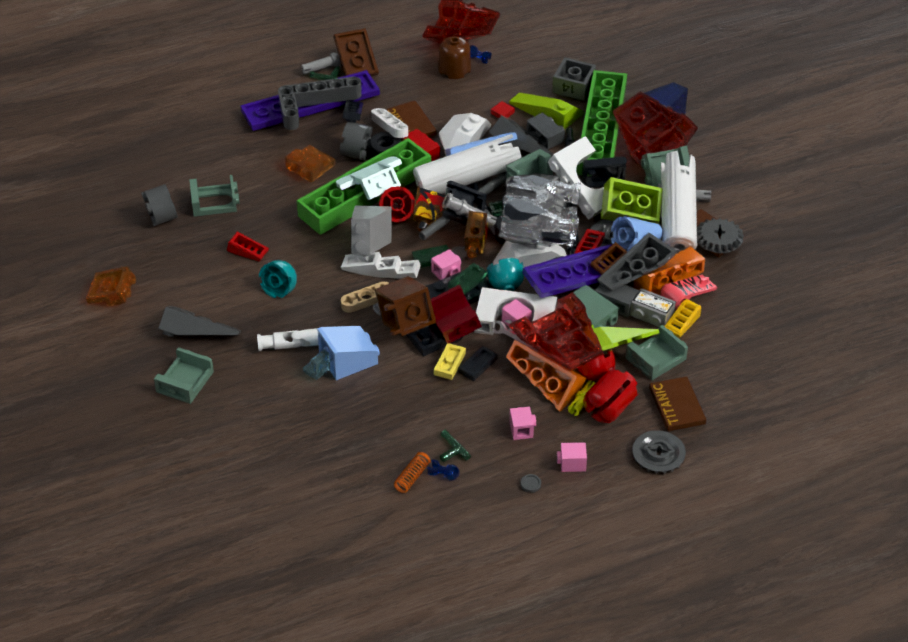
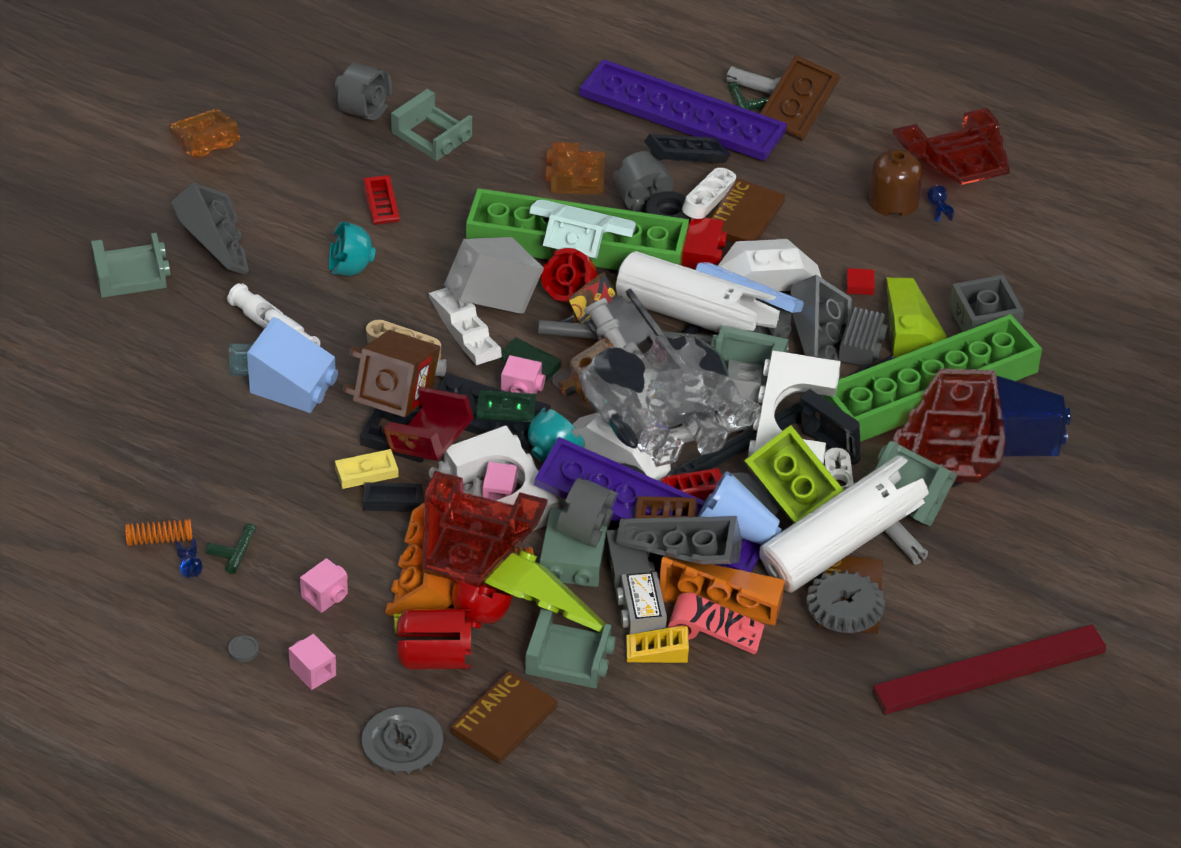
camera: 50 degrees right, 0 degrees up
(315, 93) = (677, 98): dark grey beam -> none
(588, 284) = (586, 511): none -> dark grey brick
(801, 216) = (988, 669): none -> dark red tile

